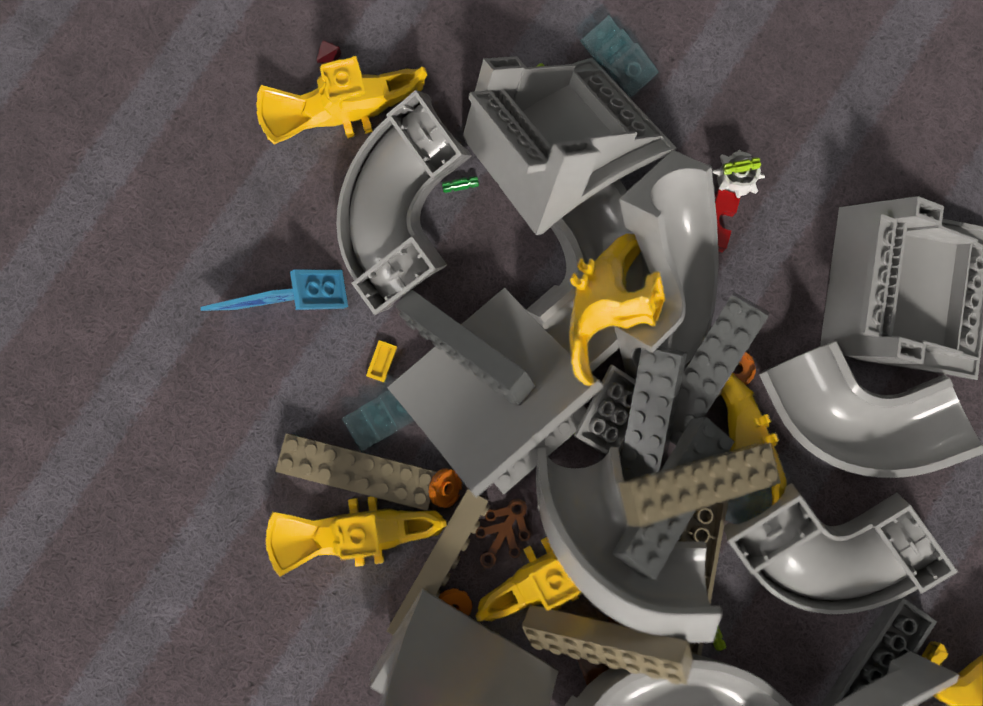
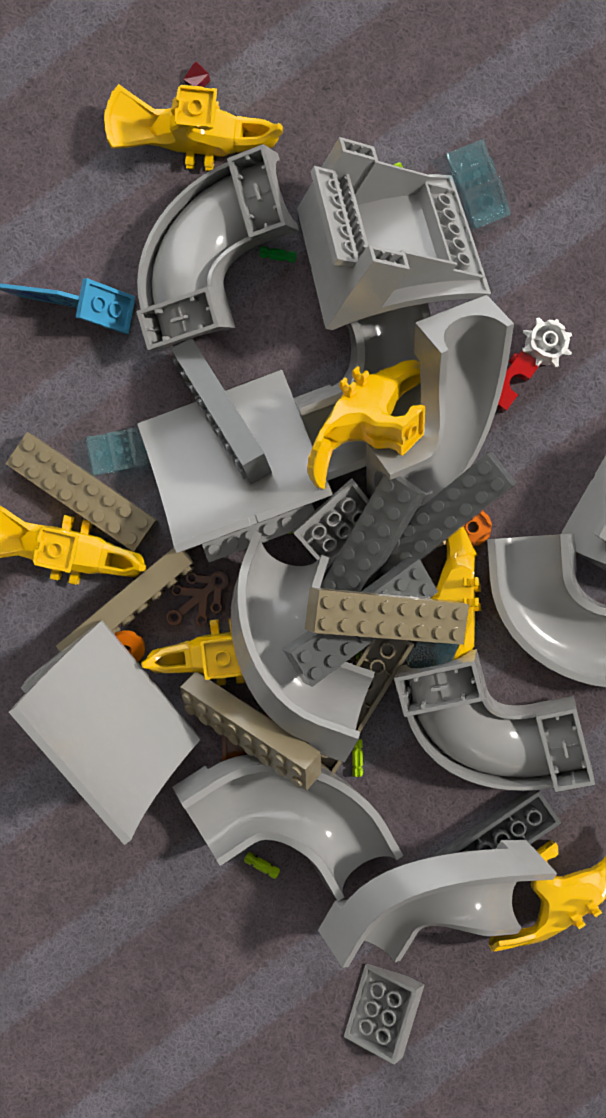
camera: 20 degrees right, 5 degrees up
(381, 361) = (142, 397): yellow tile -> none
(437, 485) = (149, 534): orange tile -> none
(741, 166) = (551, 335): lime axle -> none

